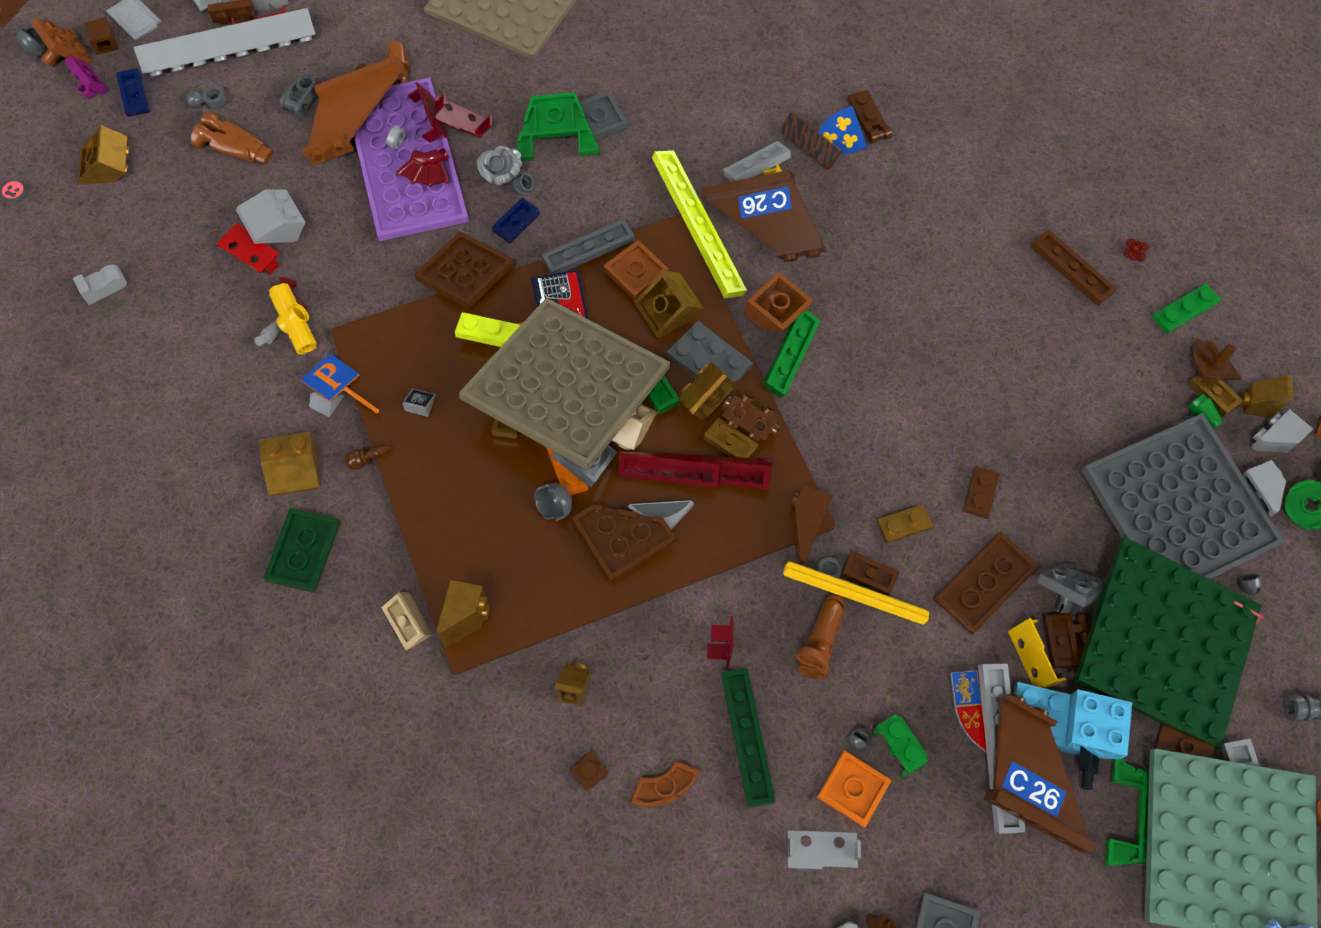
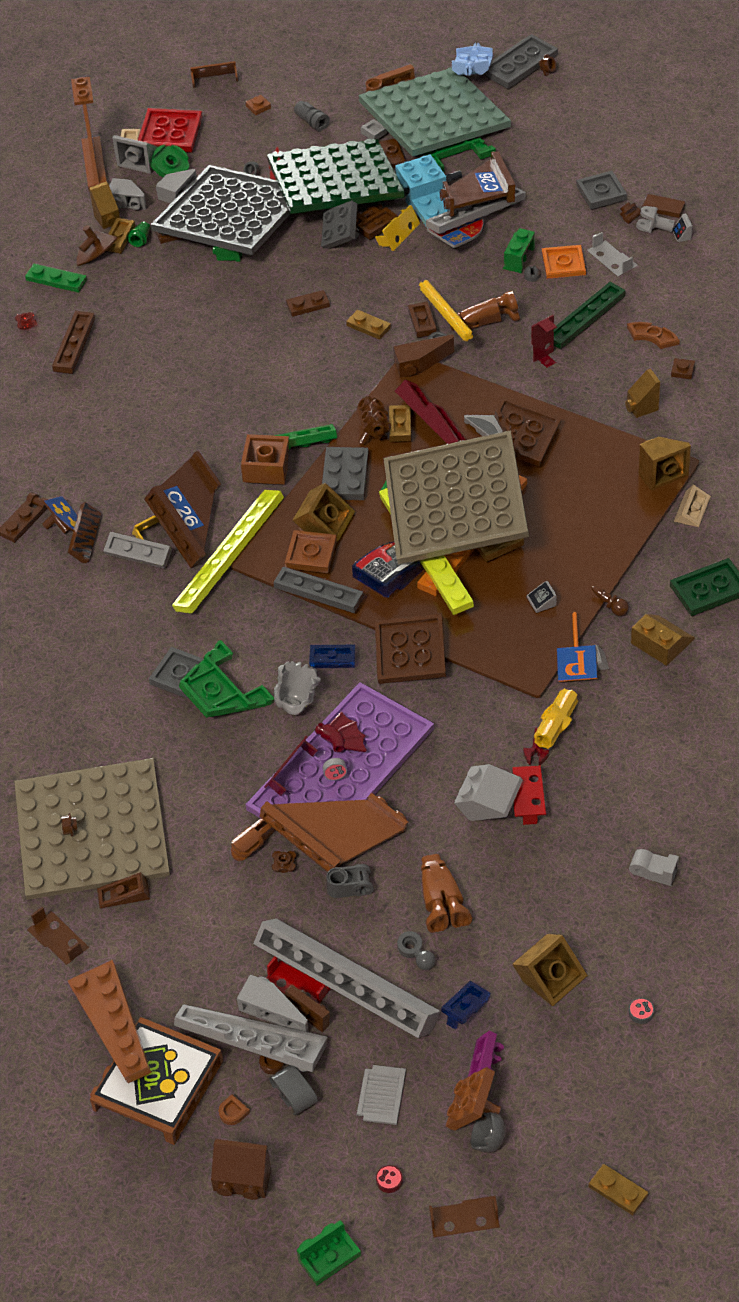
camera: 120 degrees left, 15 degrees down
(101, 35) = (429, 1087): reddish brown brick -> none
(268, 334) = (579, 731): light grey bar -> none
(459, 118) = (276, 746): piece -> none
(553, 501) = (537, 474): dark grey hair -> none
(707, 391) = (380, 438): pearl gold slope -> none
(986, 583) = (370, 272): reddish brown tile -> none

